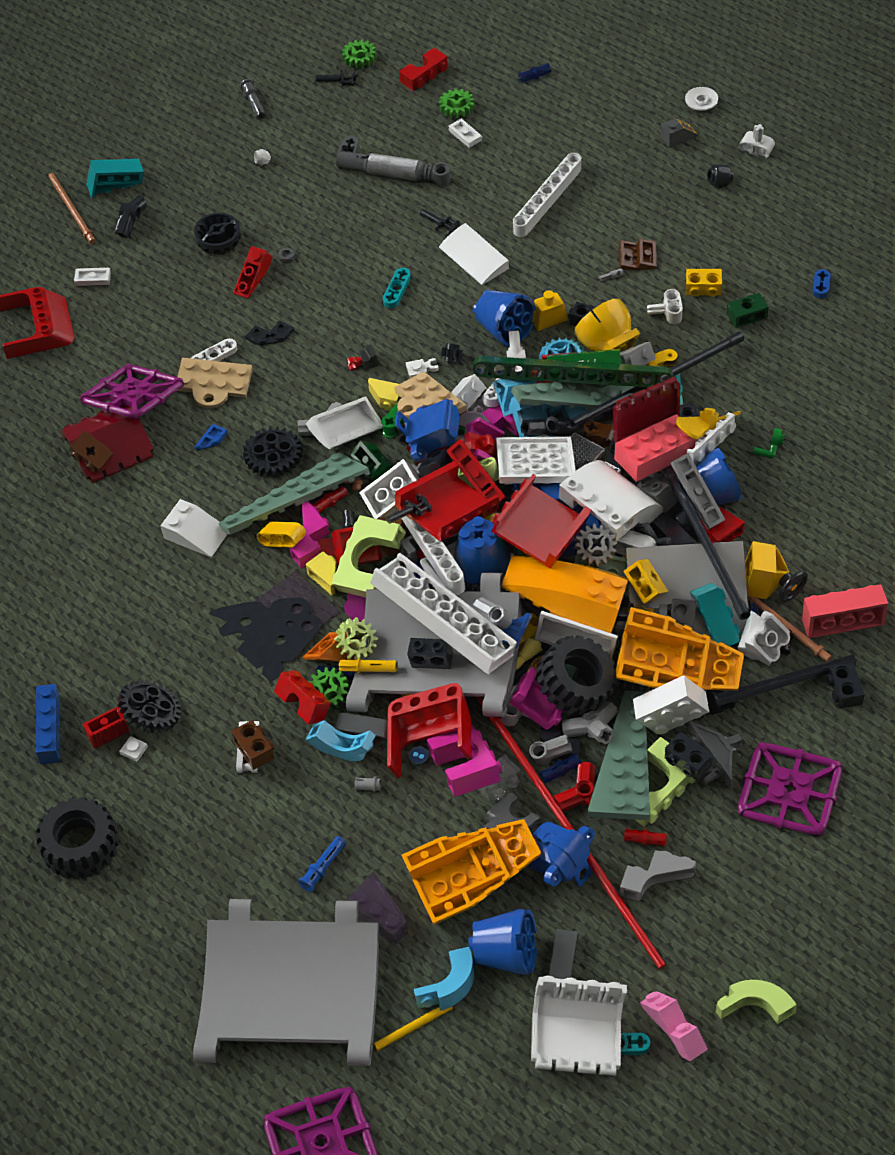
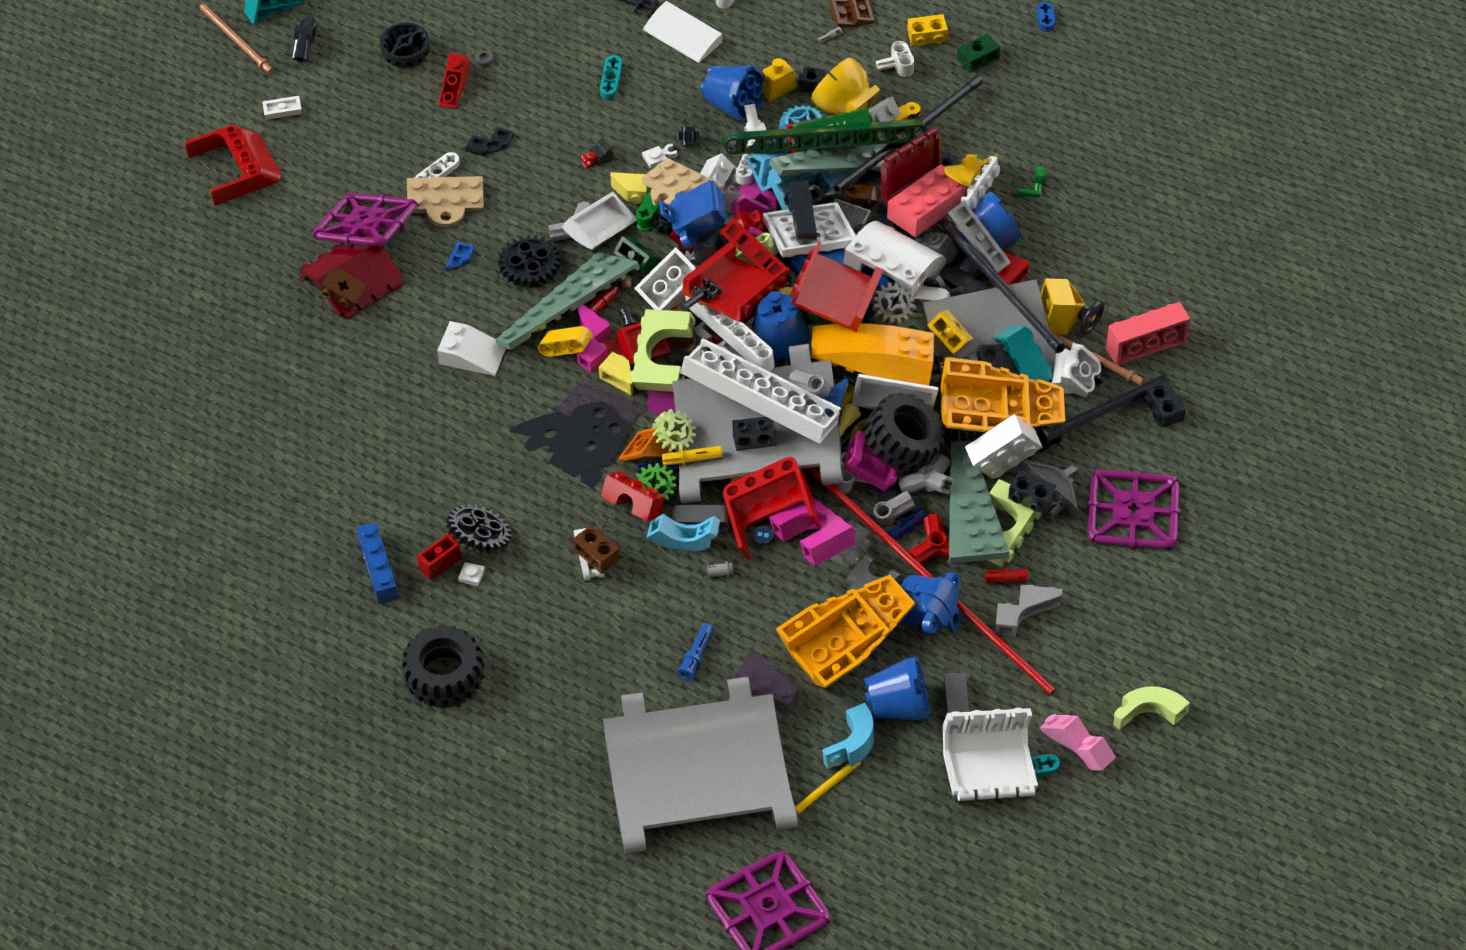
camera: 15 degrees left, 0 degrees up
(529, 441) = (802, 211): none -> black beam

